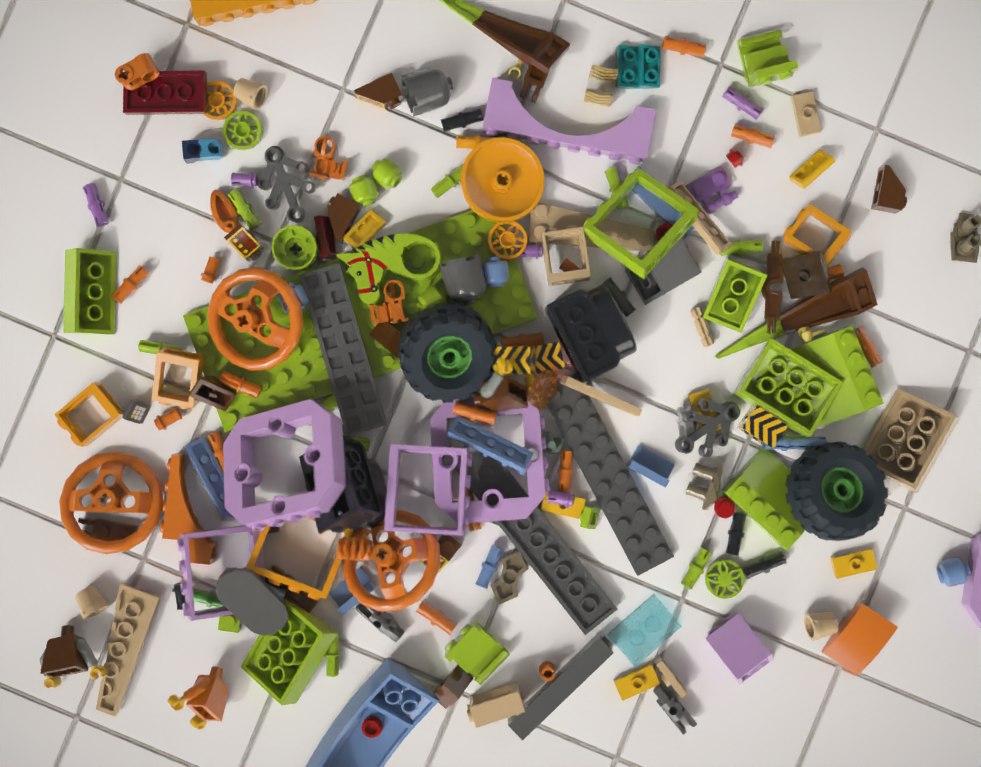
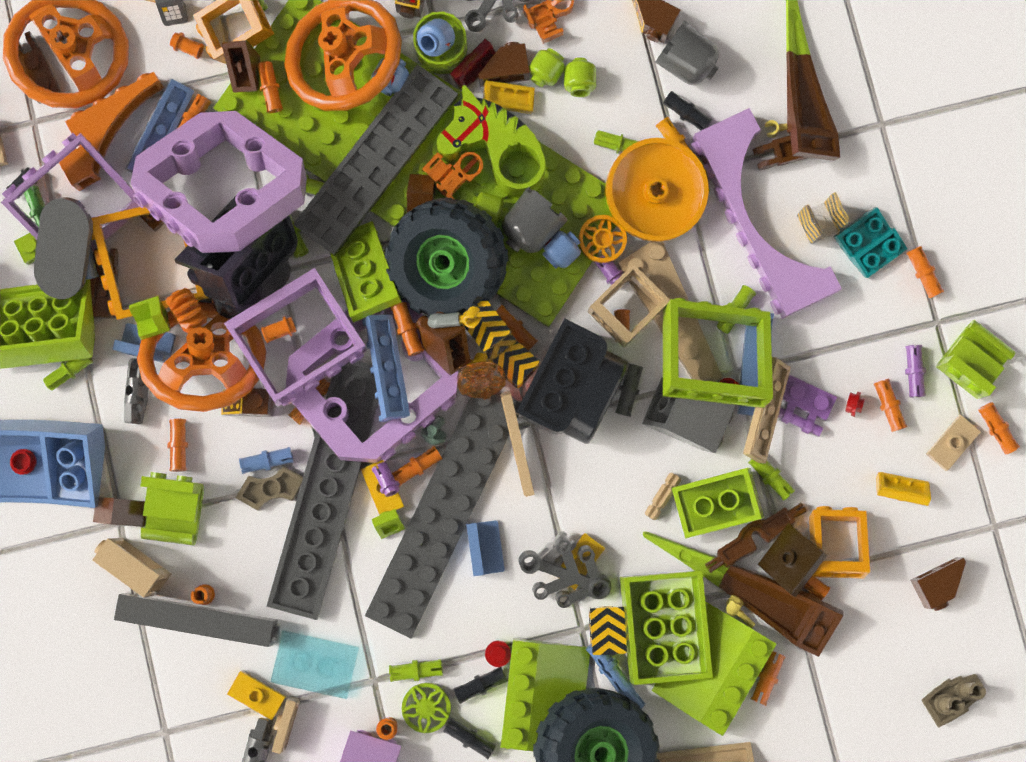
camera: 60 degrees right, 5 degrees down
(292, 249) = (435, 37): none -> medium blue head
(341, 576) = (150, 317): none -> lime panel
(415, 414) = (363, 274): none -> lime plate
(416, 497) = (279, 329): none -> orange pin
(710, 494) = (501, 628): dark tan connector -> none
(724, 616) = (382, 732): none -> orange pin
(818, 77) = (998, 428): none -> orange pin

